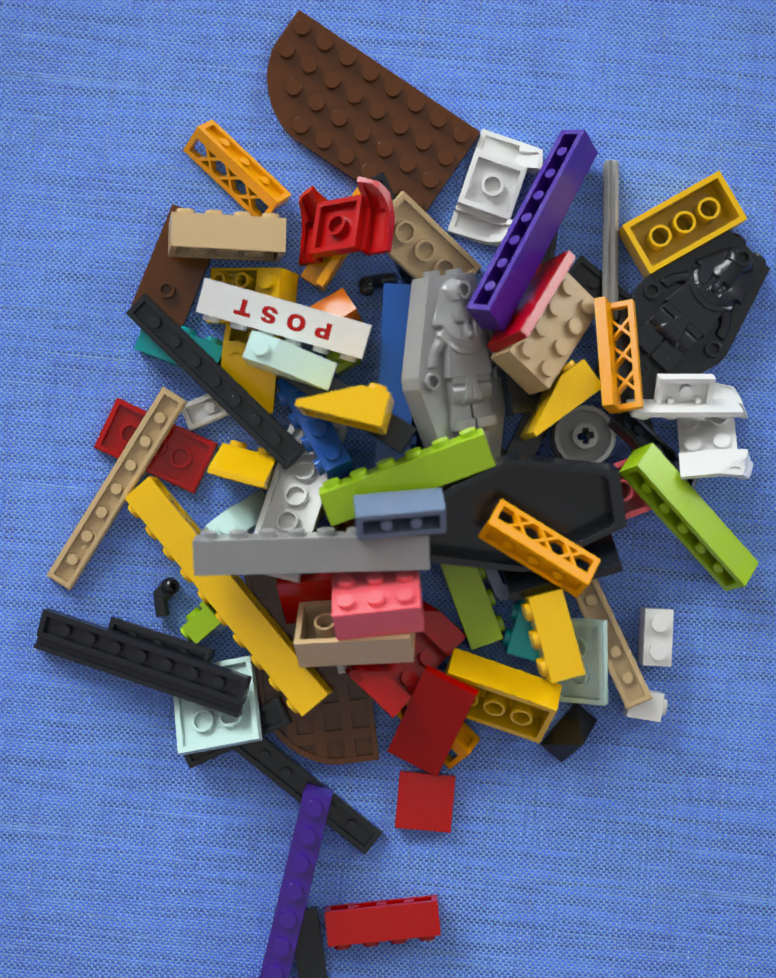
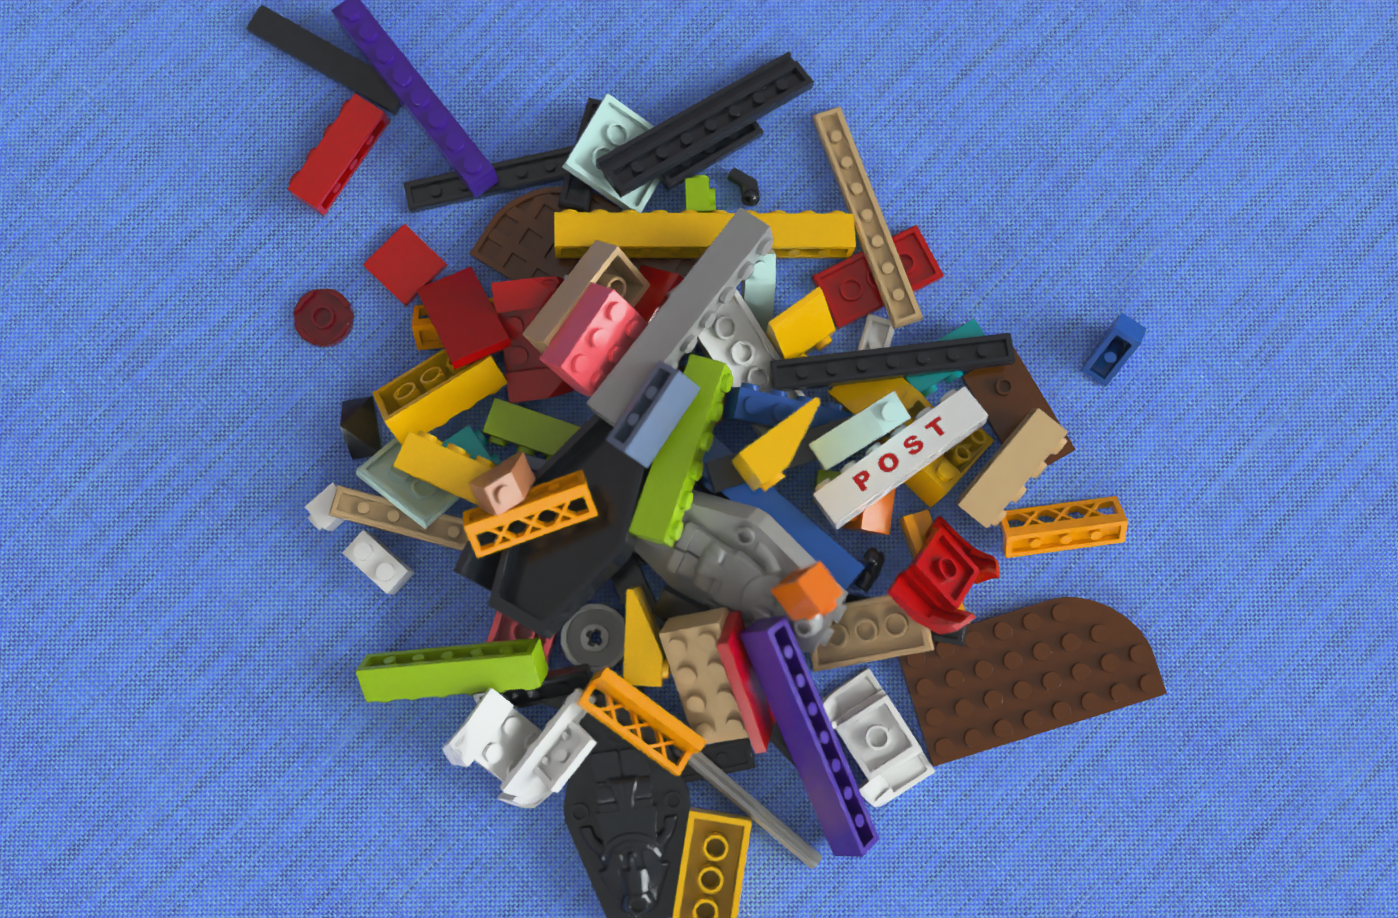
camera: 130 degrees right, 5 degrees down
(74, 231) = (1114, 349): none -> blue slope
(439, 302) = (807, 592): none -> orange brick
(511, 829) = (323, 317): none -> dark red tile
(535, 581) = (503, 485): none -> nougat slope

